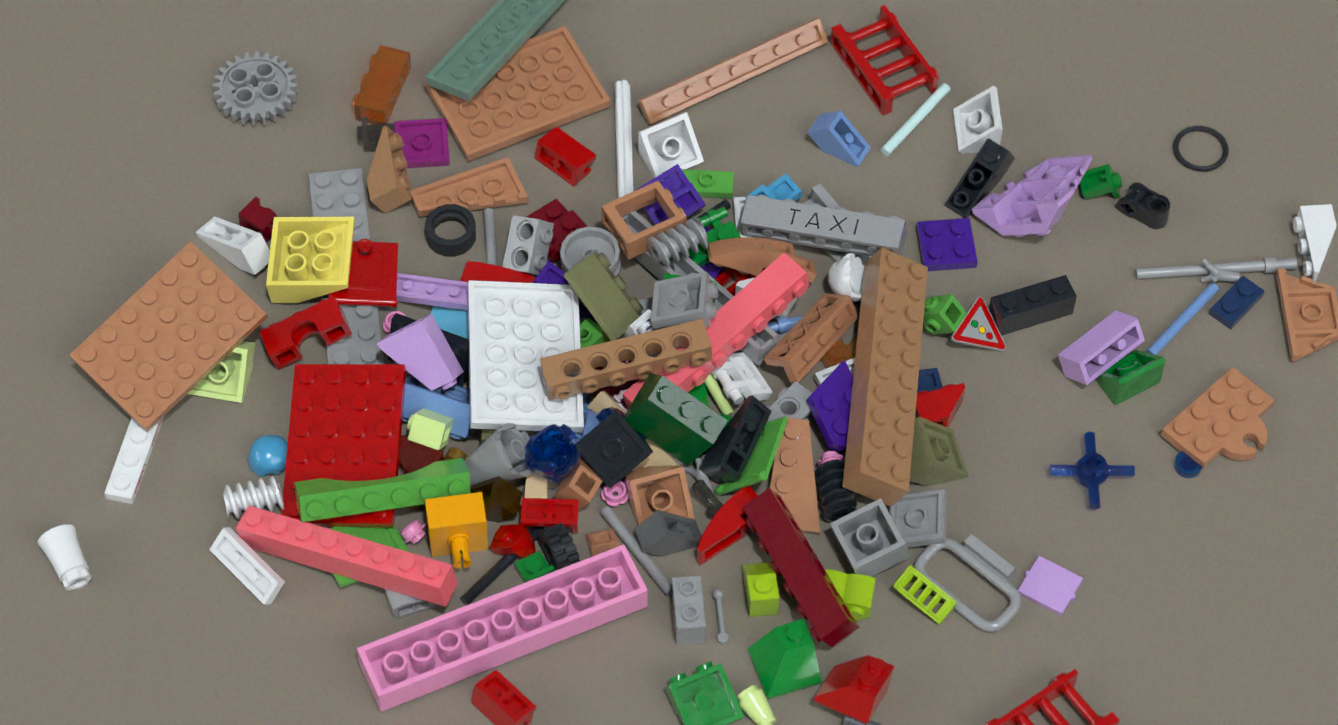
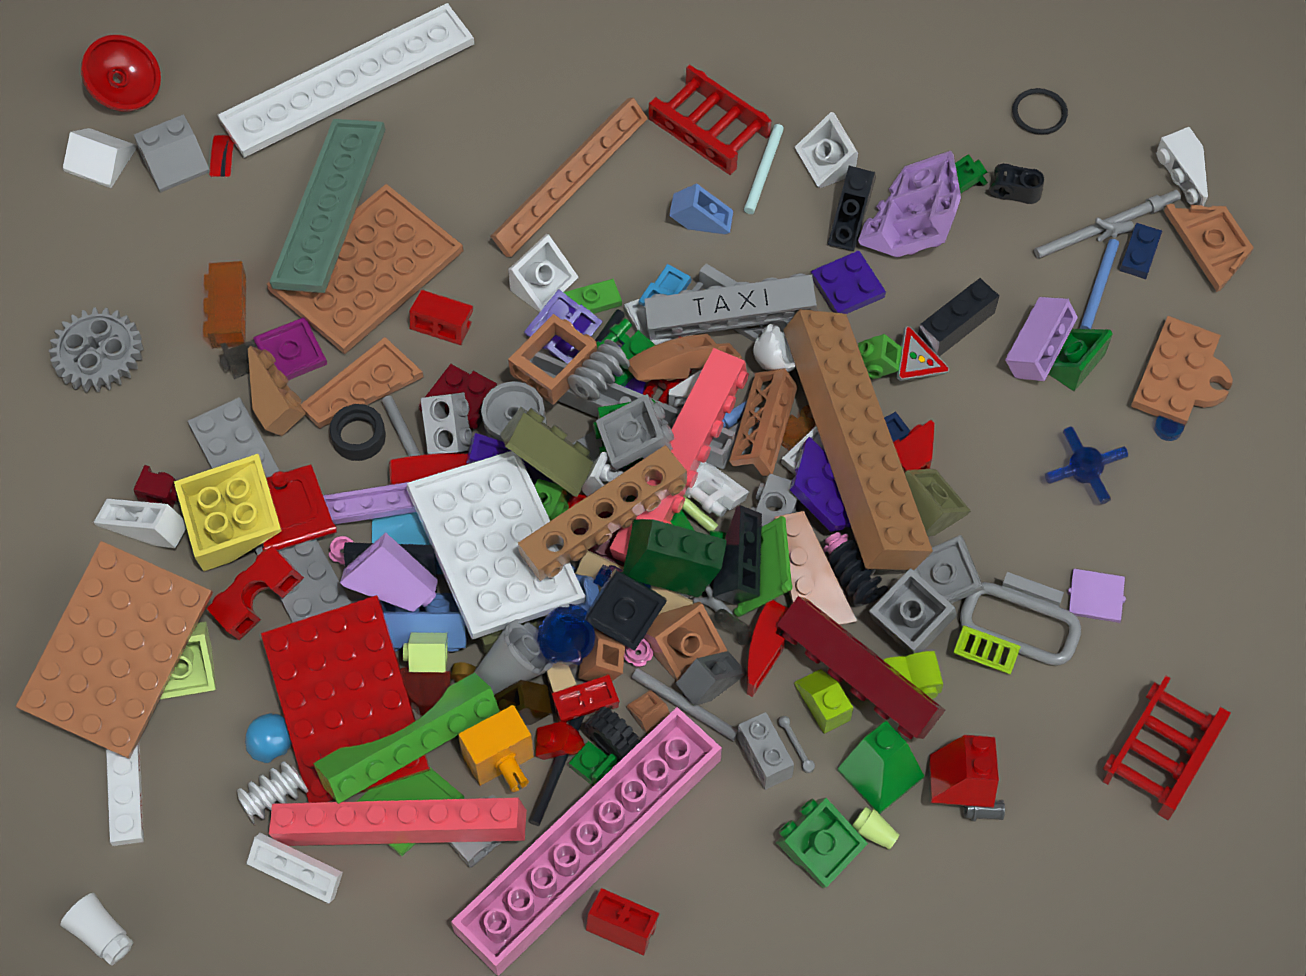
camera: 20 degrees left, 5 degrees up
(413, 532) = (451, 767): bright pink plate -> none
(623, 138) = (493, 284): white axle -> none

